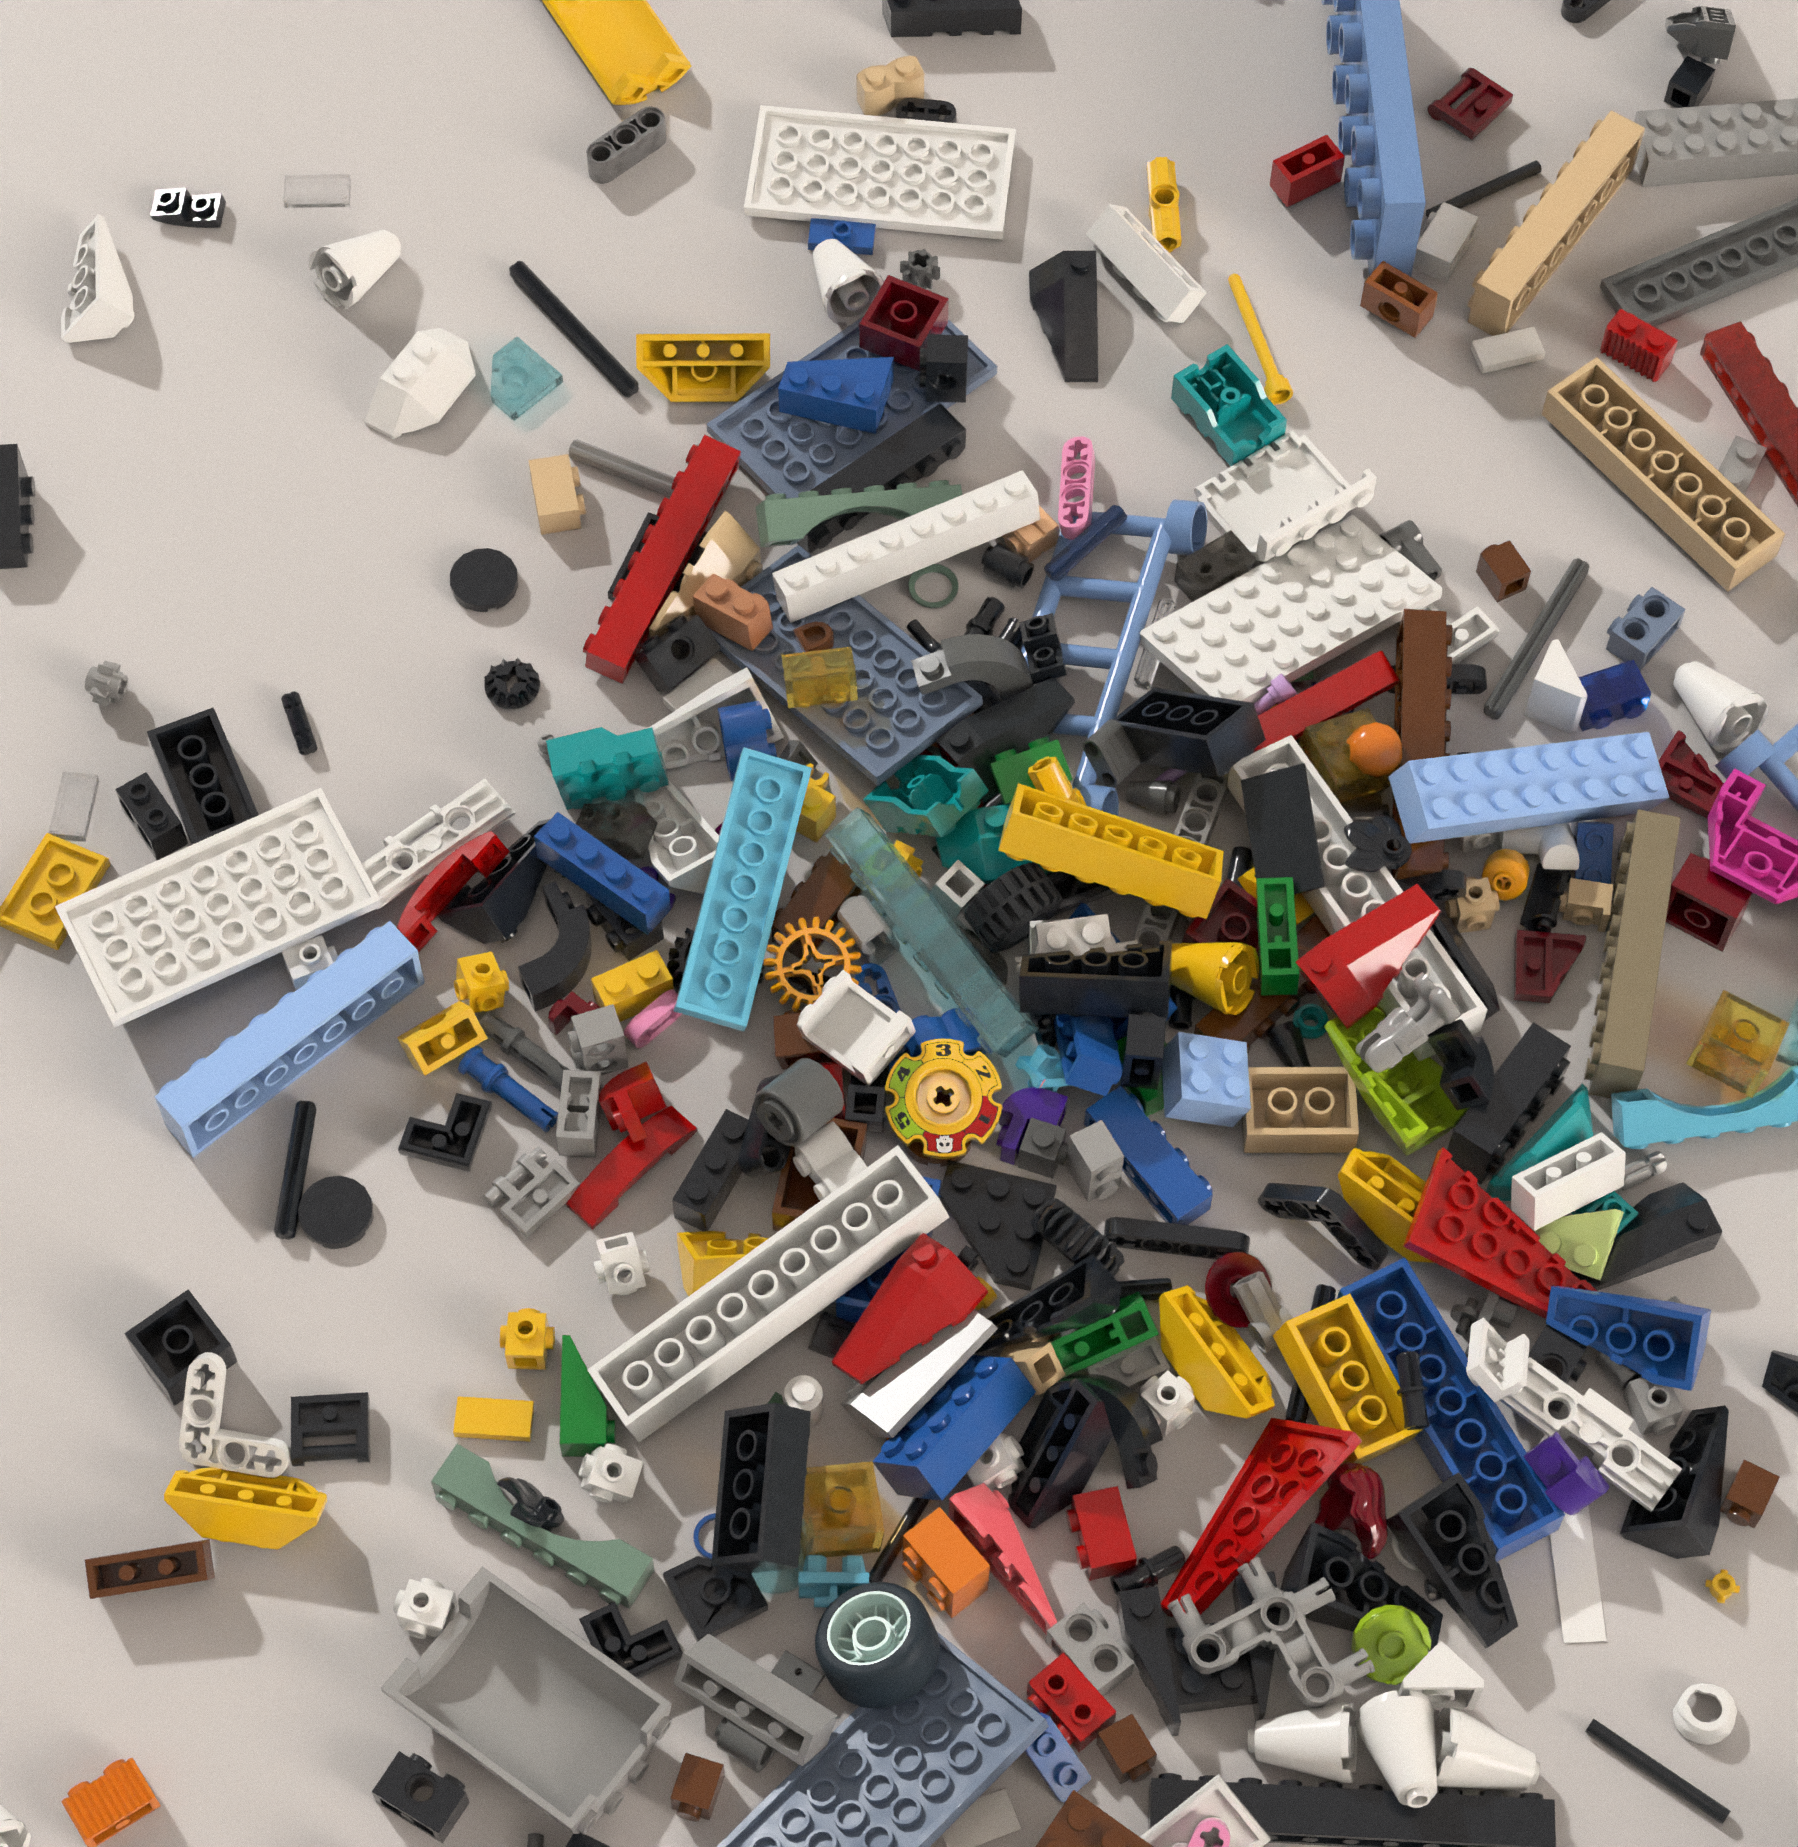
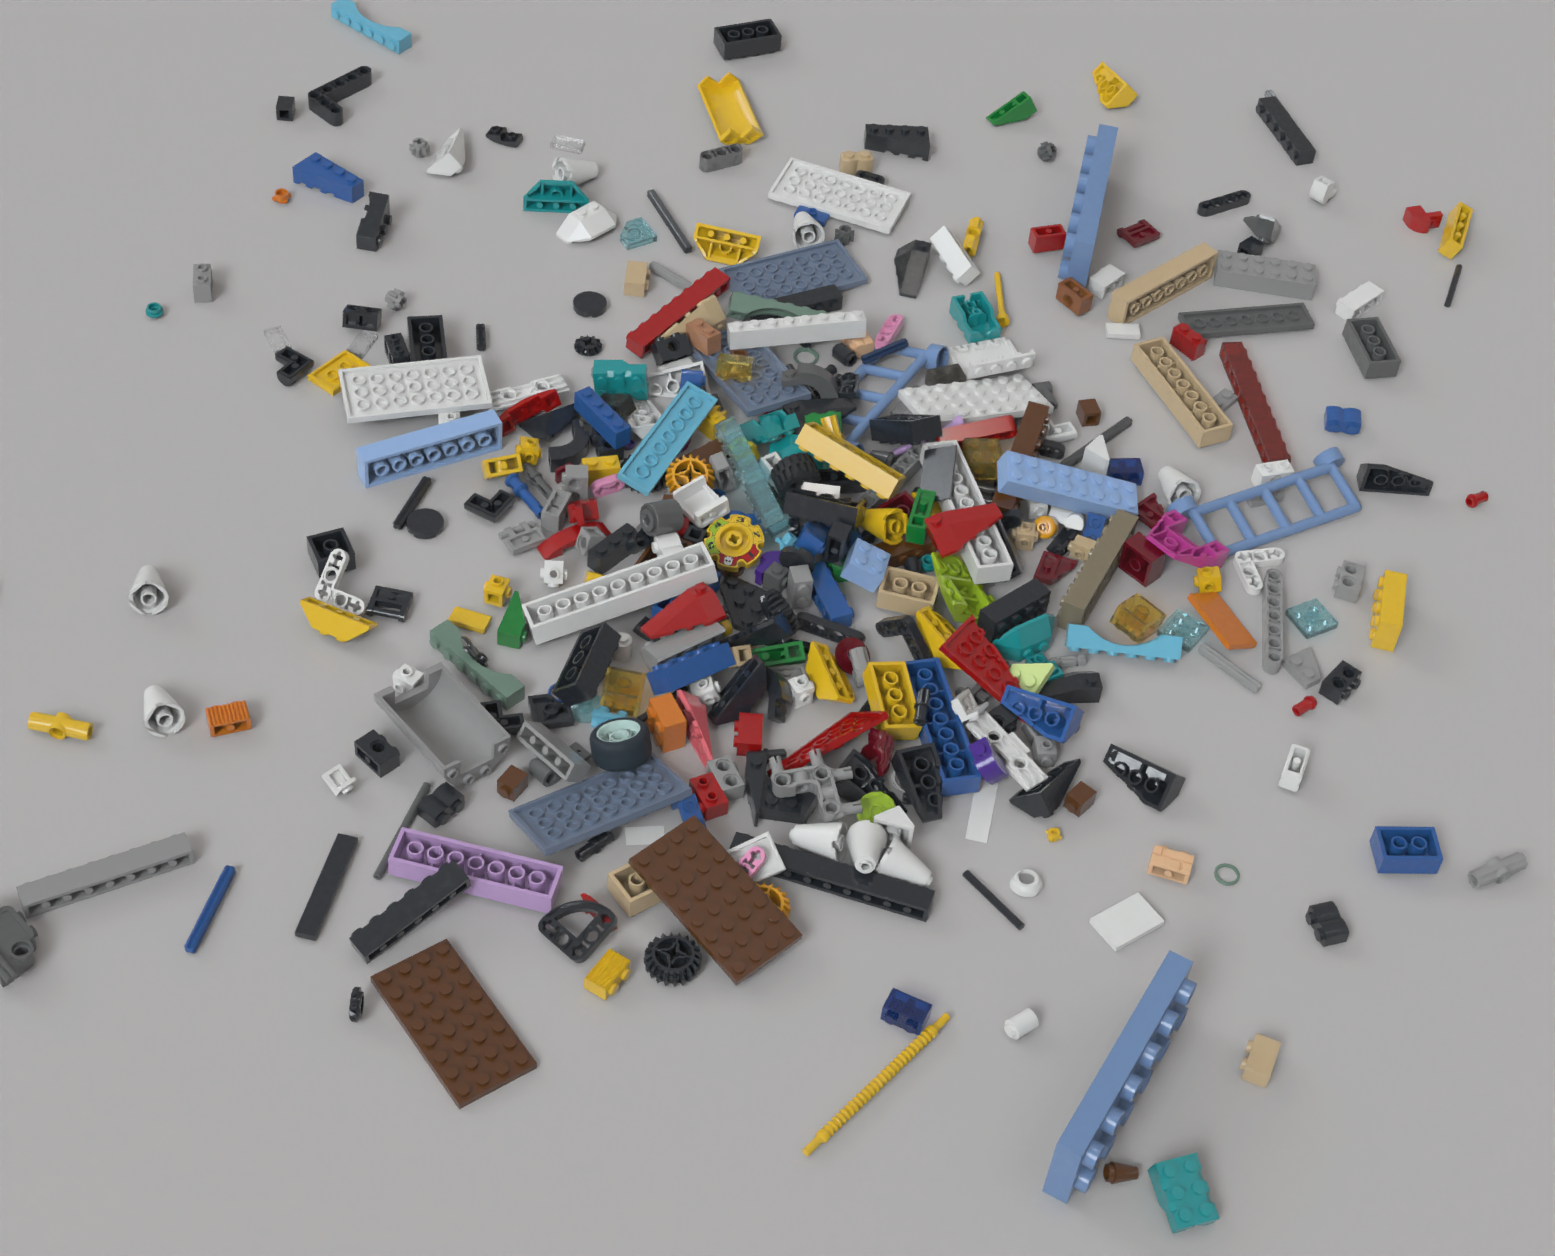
camera: 10 degrees right, 15 degrees down
(31, 287) = (419, 147): none -> light grey gear
(55, 749) = (362, 317): none -> black brick
(149, 1569) = (282, 632): reddish brown brick -> none
(340, 342) = (554, 197): none -> teal wedge
(622, 1474) = (517, 650): white brick -> none
(665, 1168) = (588, 538): none -> light grey brick
(838, 391) = (786, 267): blue wedge -> none
(901, 321) = (827, 247): dark red brick -> none
(944, 368) = (840, 267): black brick -> none
(1078, 1115) = (794, 557): none -> black tile
(1111, 753) = (866, 431): dark grey piece -> none
(1127, 1750) = (728, 821): reddish brown brick -> none
(1373, 845) = (982, 489): black plate -> none
(1375, 749) = (993, 450): orange hair -> none
(1405, 1031) = (969, 557): light grey piece -> none
(1467, 1065) = (995, 581): black brick -> none
(1491, 187) = (1142, 267): black bar -> none
(1568, 1181) = (1031, 647): white brick -> none
(1648, 630) = (1152, 450): sand blue brick -> none

